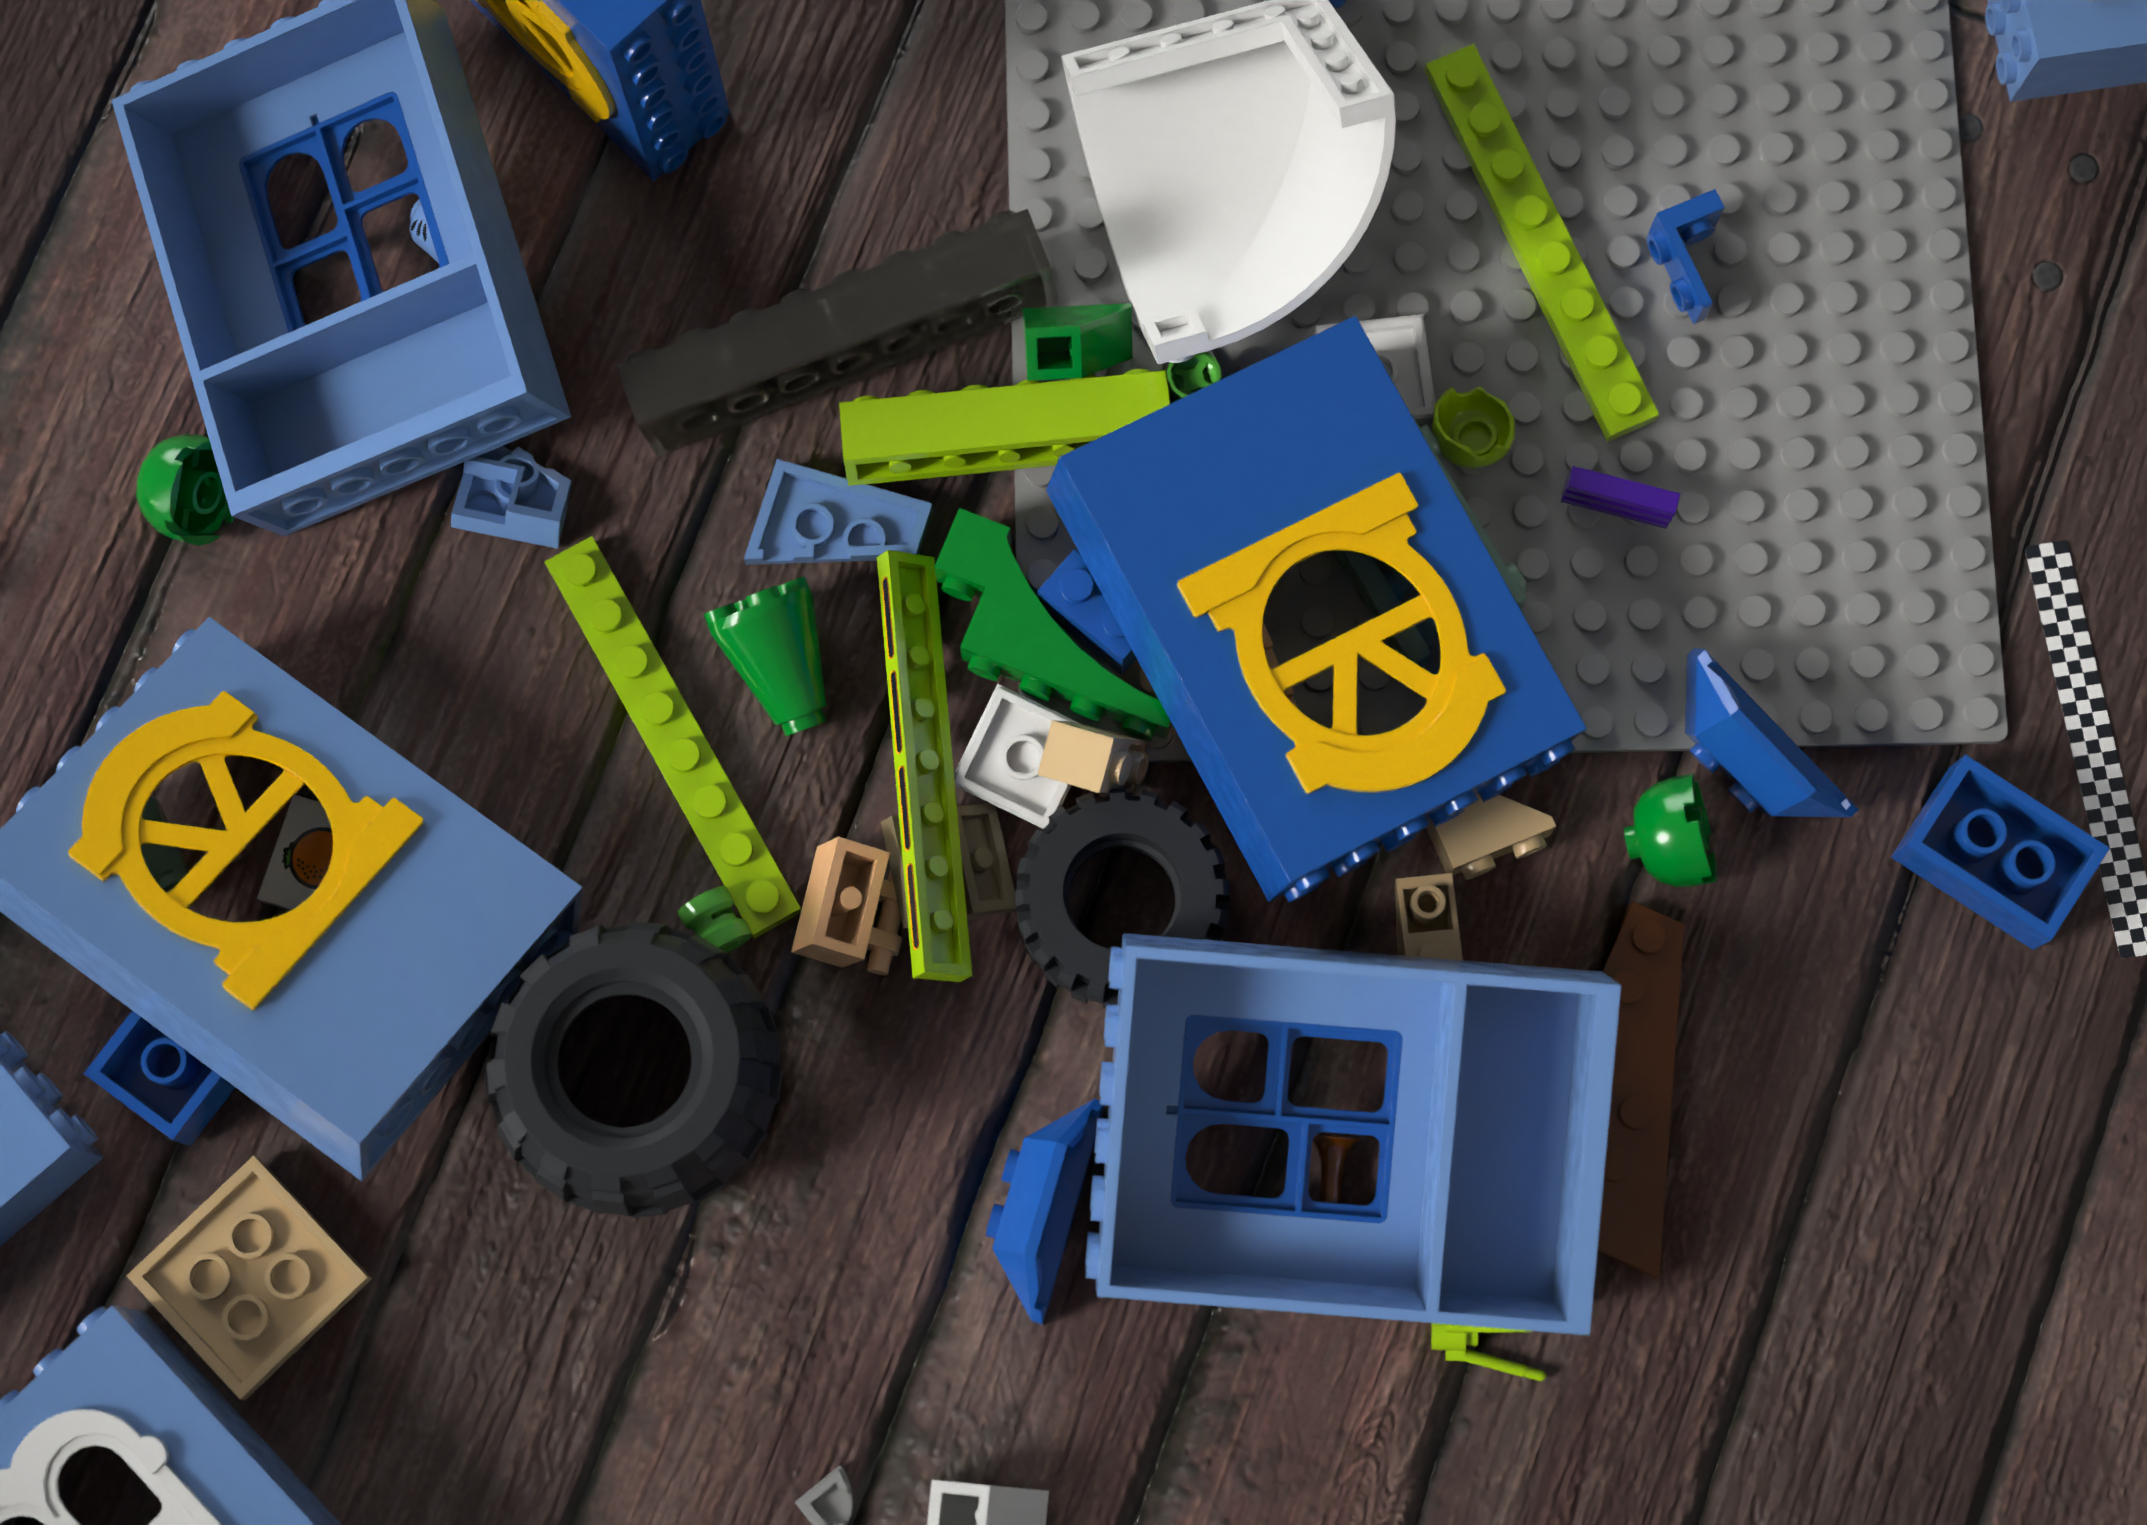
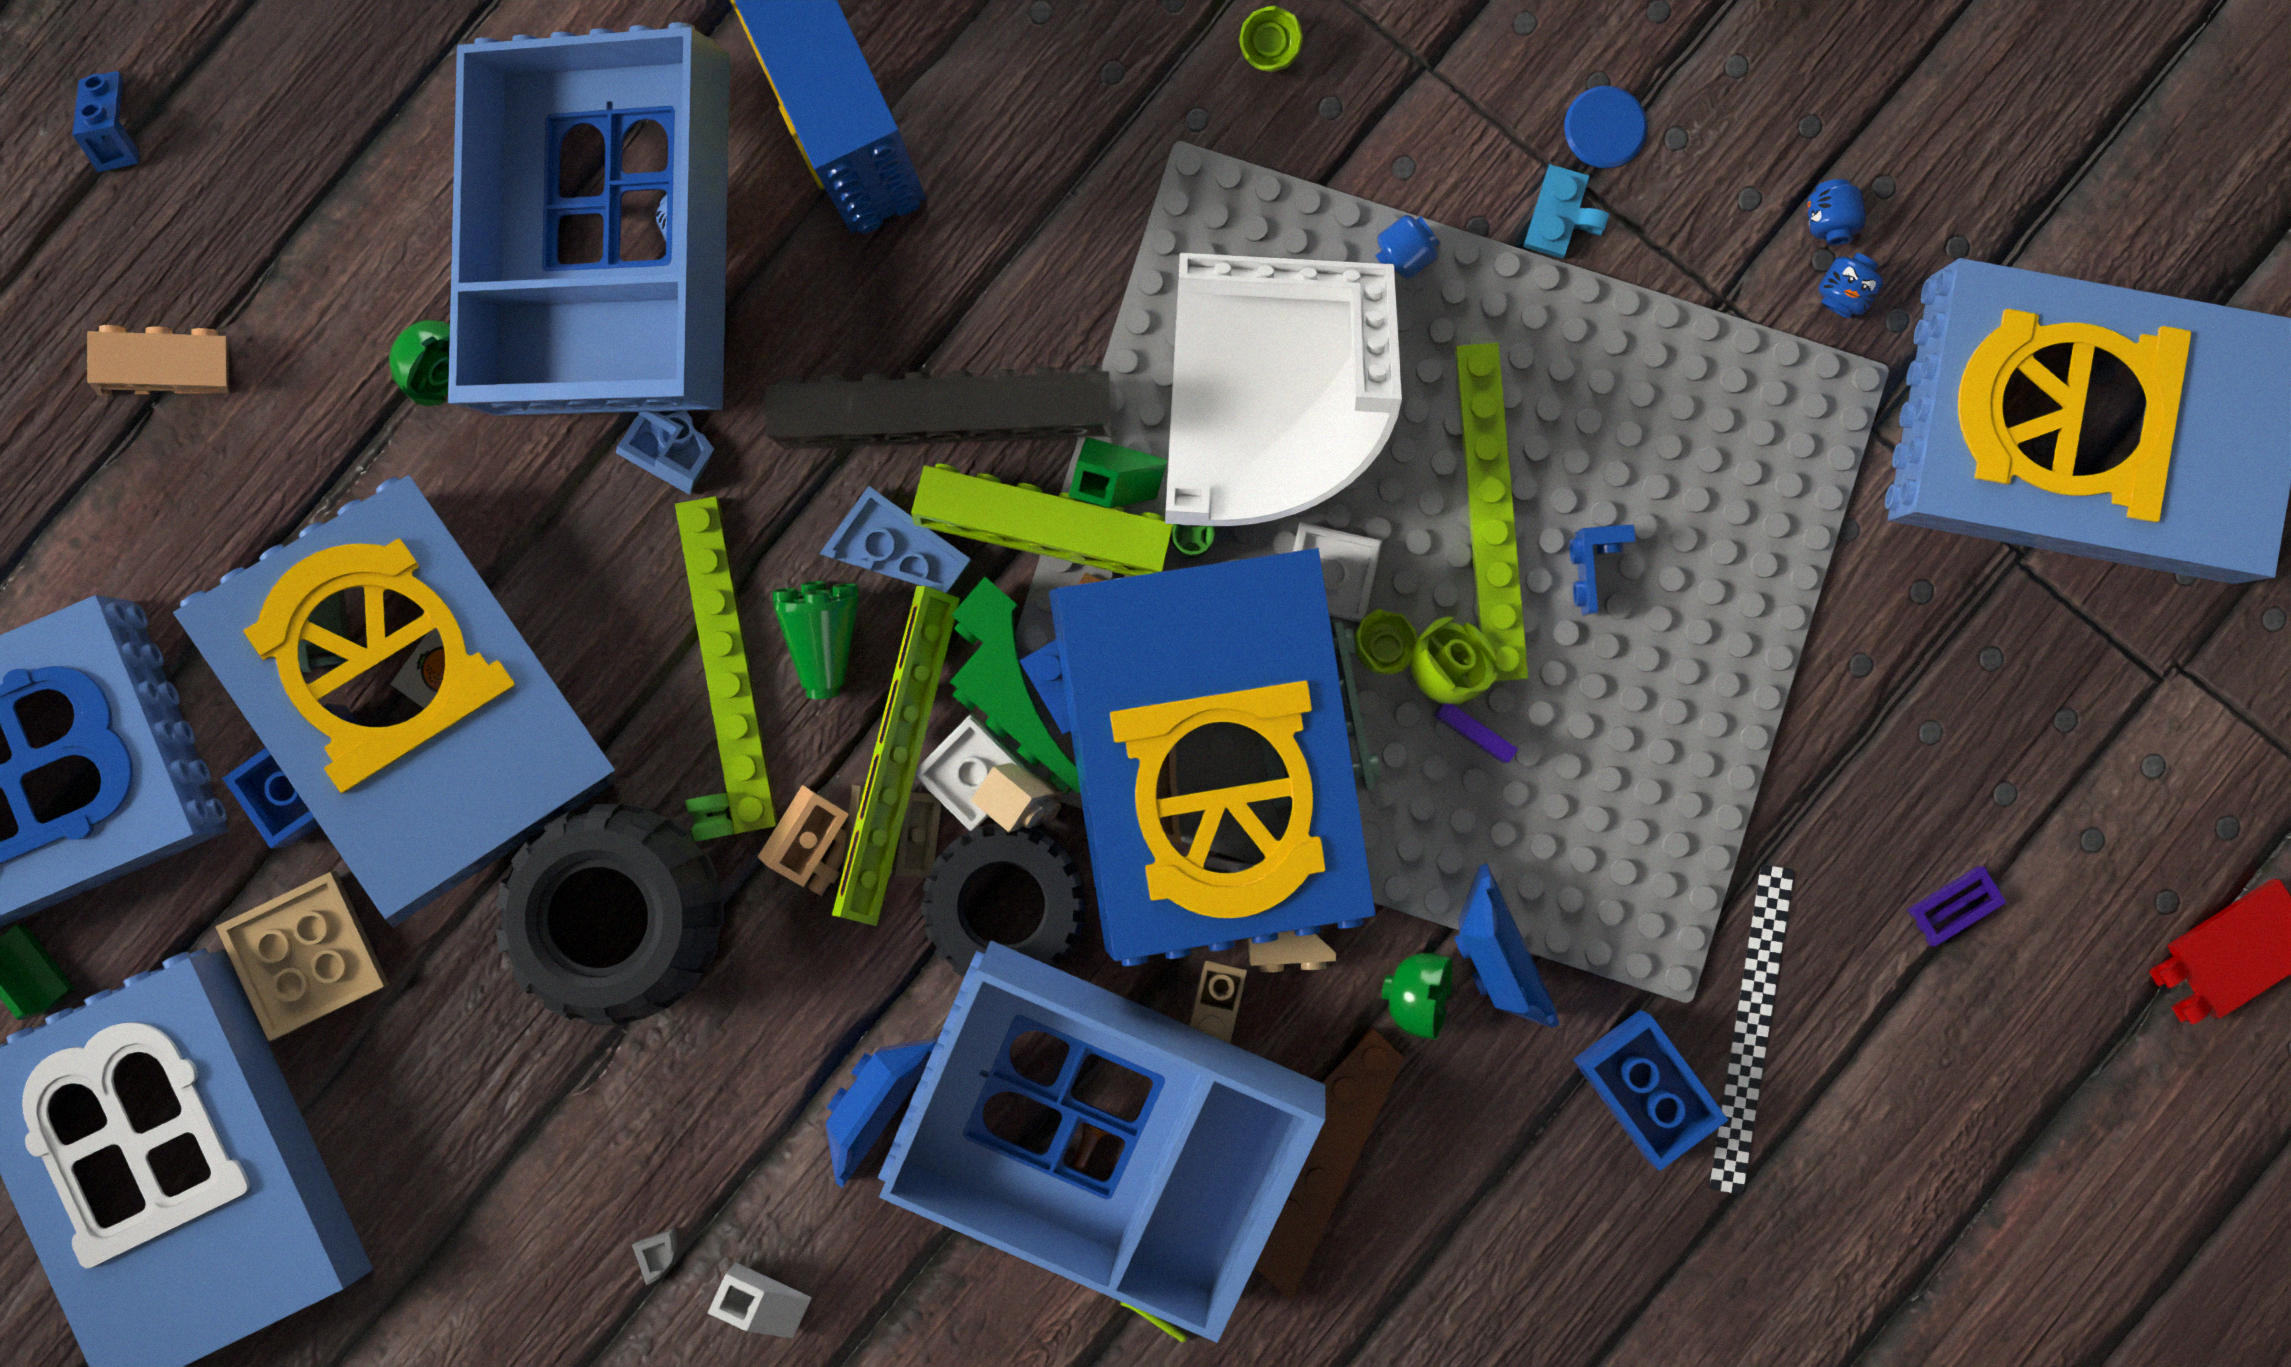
camera: 25 degrees right, 10 degrees up
(1561, 421) = (1452, 662): none -> lime cylinder

